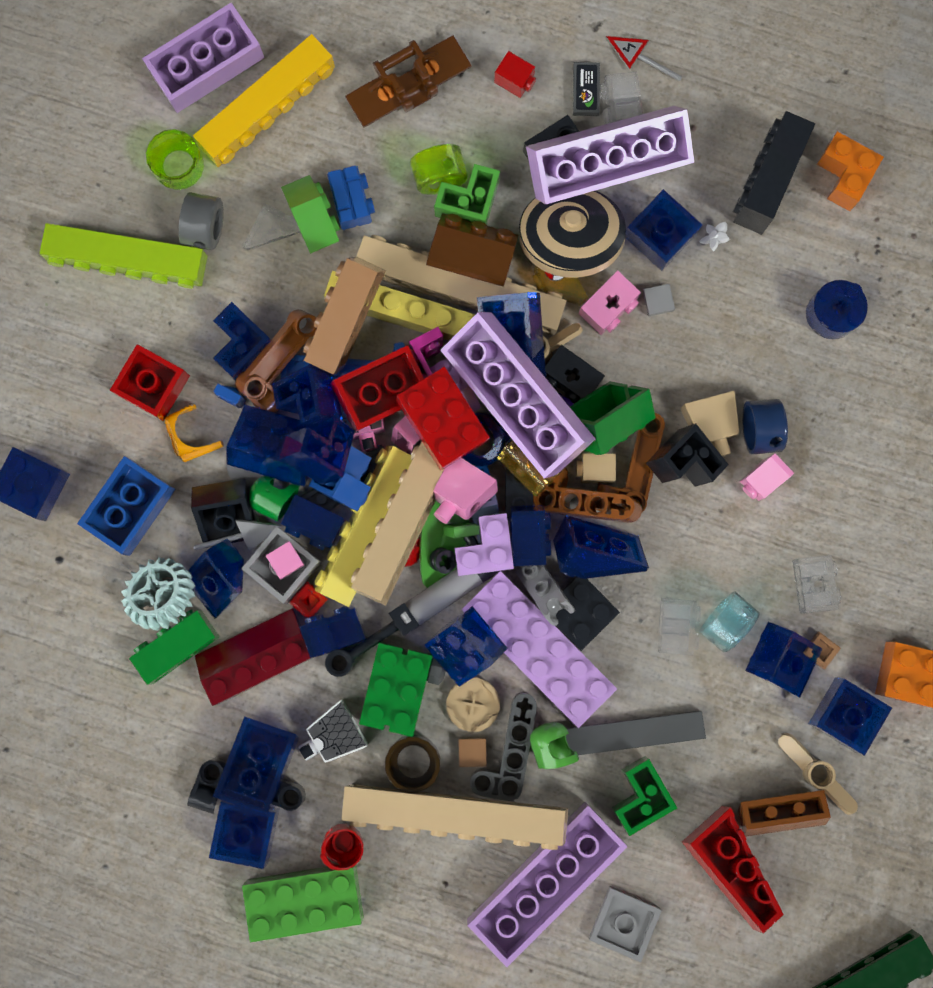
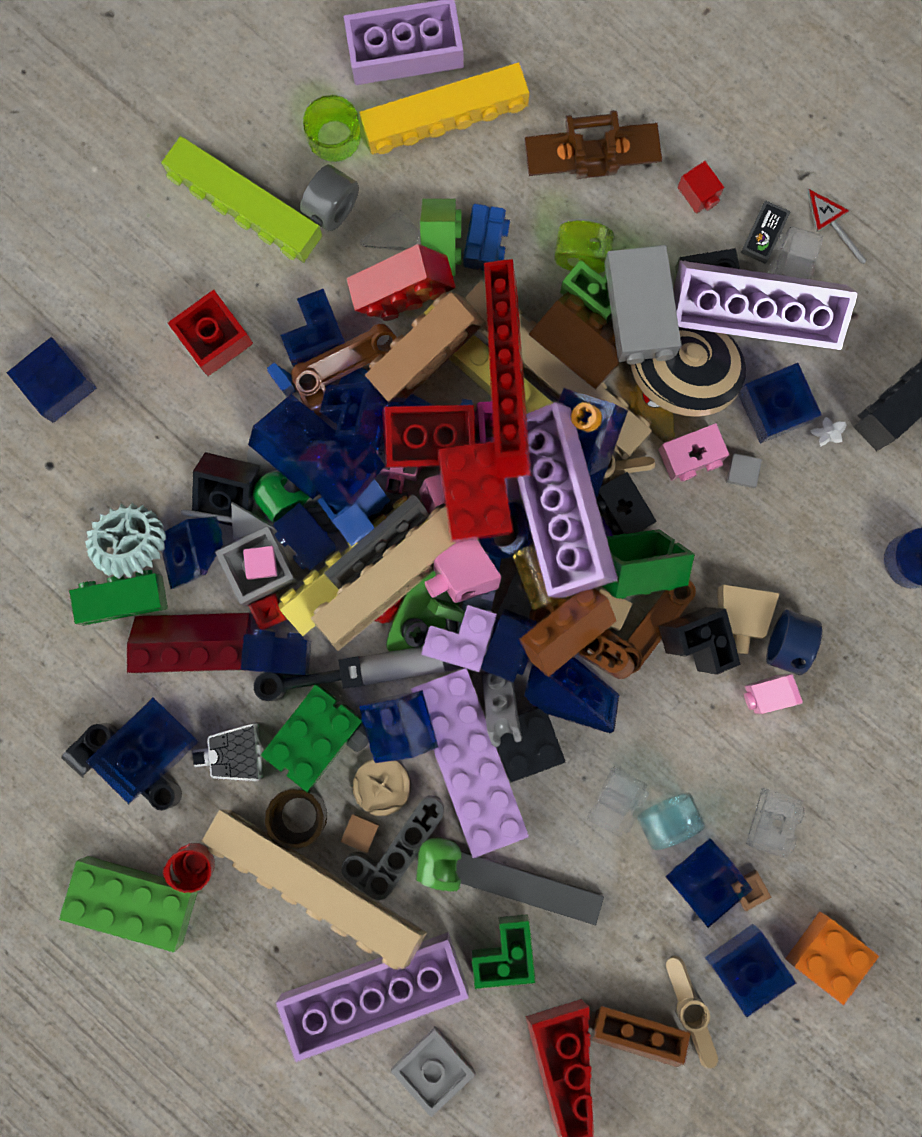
camera: 30 degrees right, 0 degrees up
(126, 506) = (133, 442): blue brick -> none
(184, 451) = (214, 415): light orange helmet -> none
(243, 835) = (100, 814): clear blue brick -> none
(297, 268) = (401, 283): none -> brick
(377, 498) = (373, 545): none -> dark grey tile
(423, 303) = (506, 370): none -> red brick
(511, 197) = (642, 304): none -> light grey brick
(516, 313) = (579, 413): none -> light orange bush
(573, 499) = (568, 630): none -> dark orange brick

